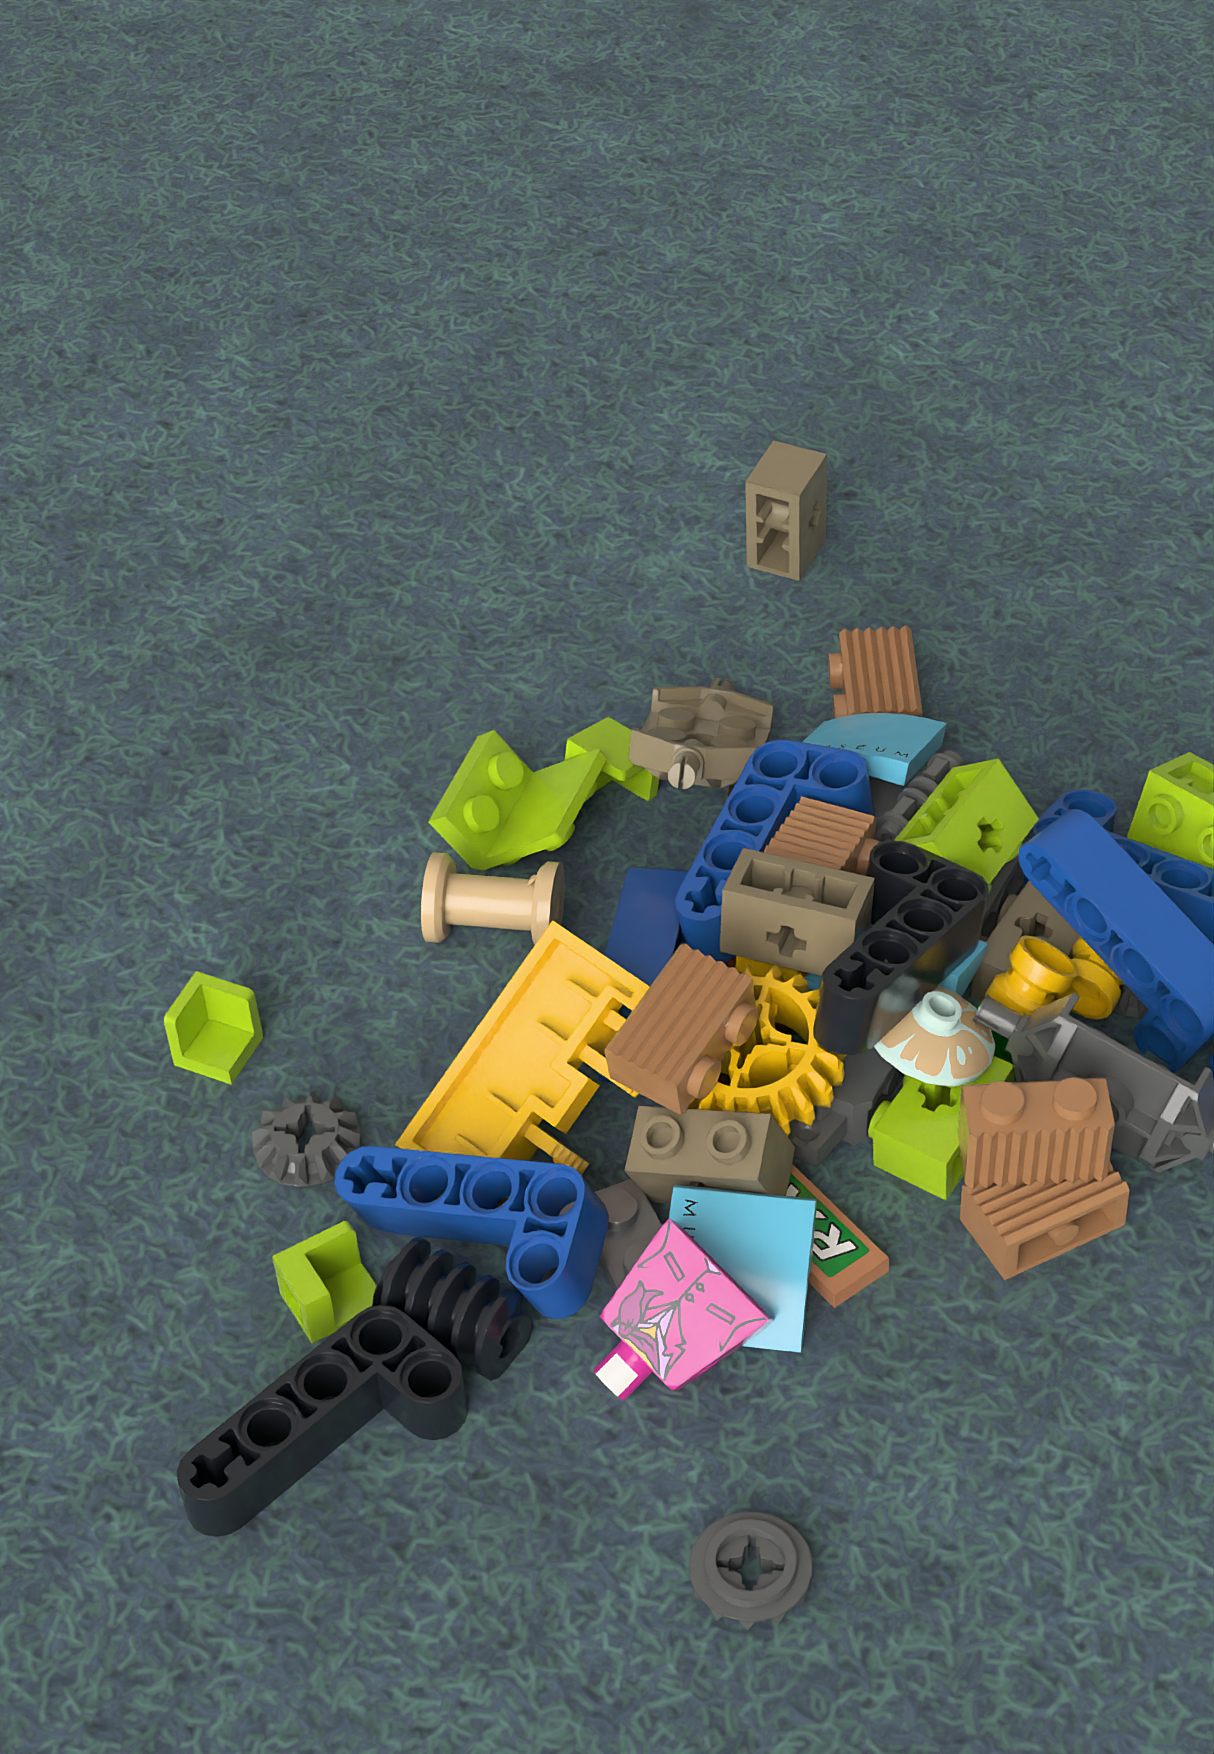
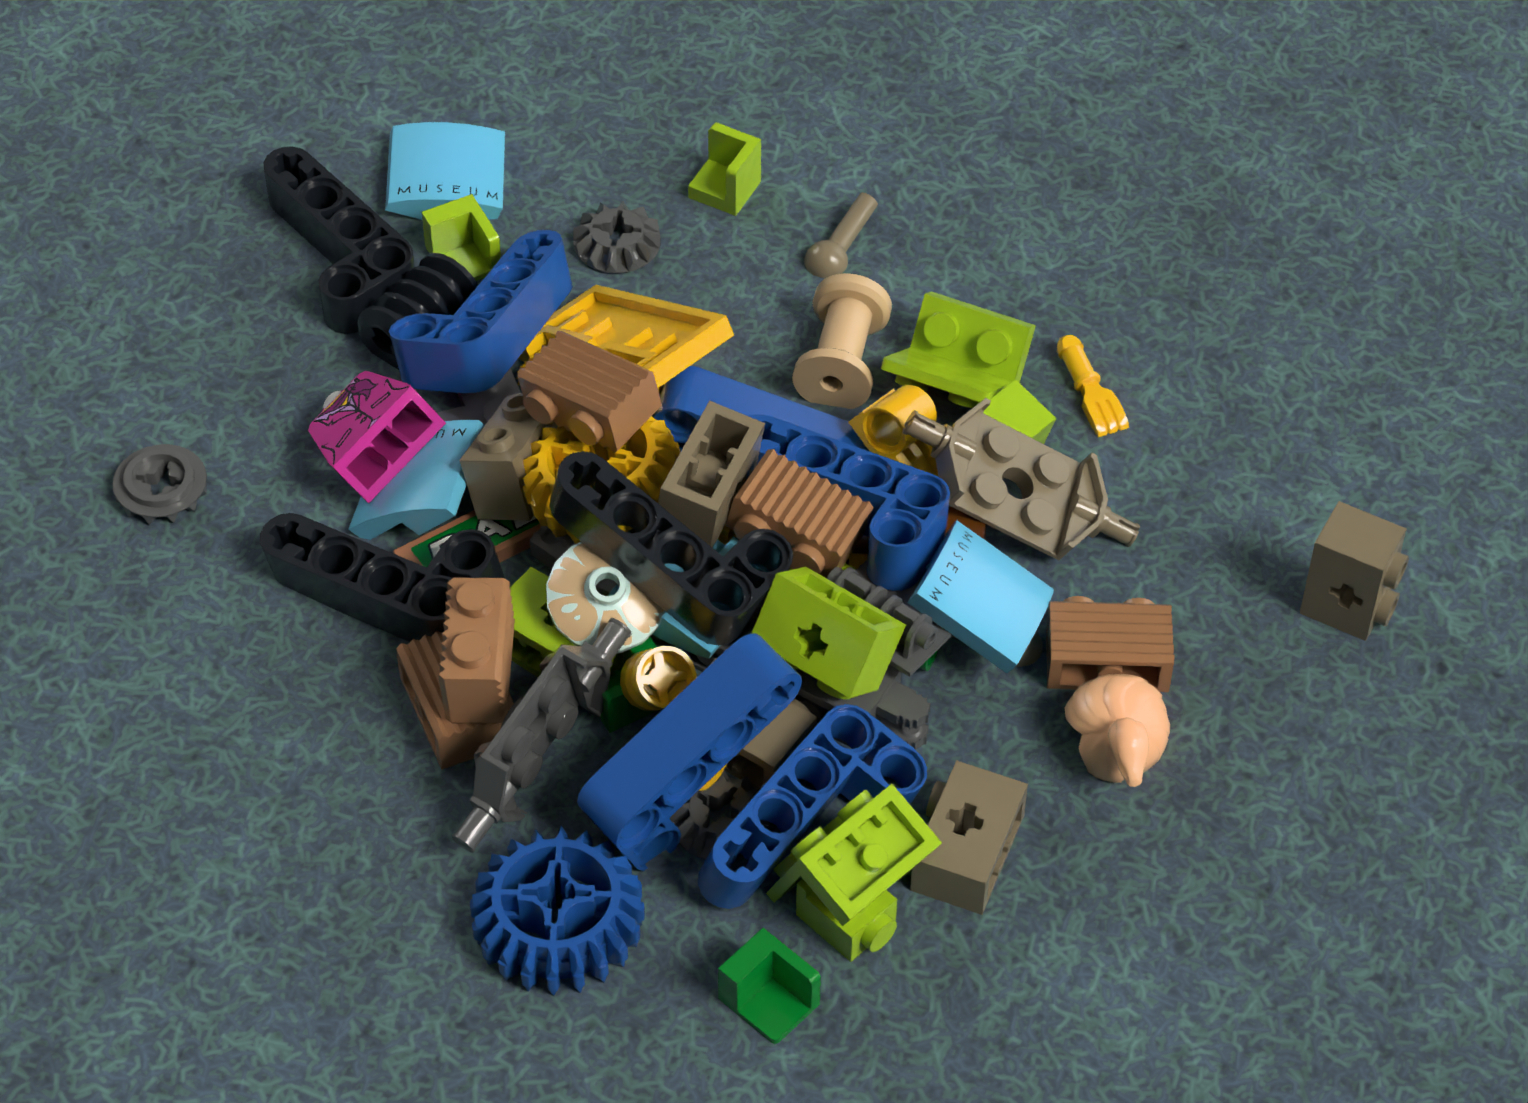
camera: 90 degrees right, 5 degrees up
(190, 1325) = (444, 163): none -> medium azure slope
(333, 947) = (830, 256): none -> dark tan bar
(544, 719) = (1099, 403): none -> yellow piece
(646, 828) = (883, 424): none -> yellow plate
(893, 1295) = (360, 576): none -> black beam
(984, 664) = (1120, 726): none -> light nougat hair
(1118, 760) = (989, 814): none -> dark tan brick

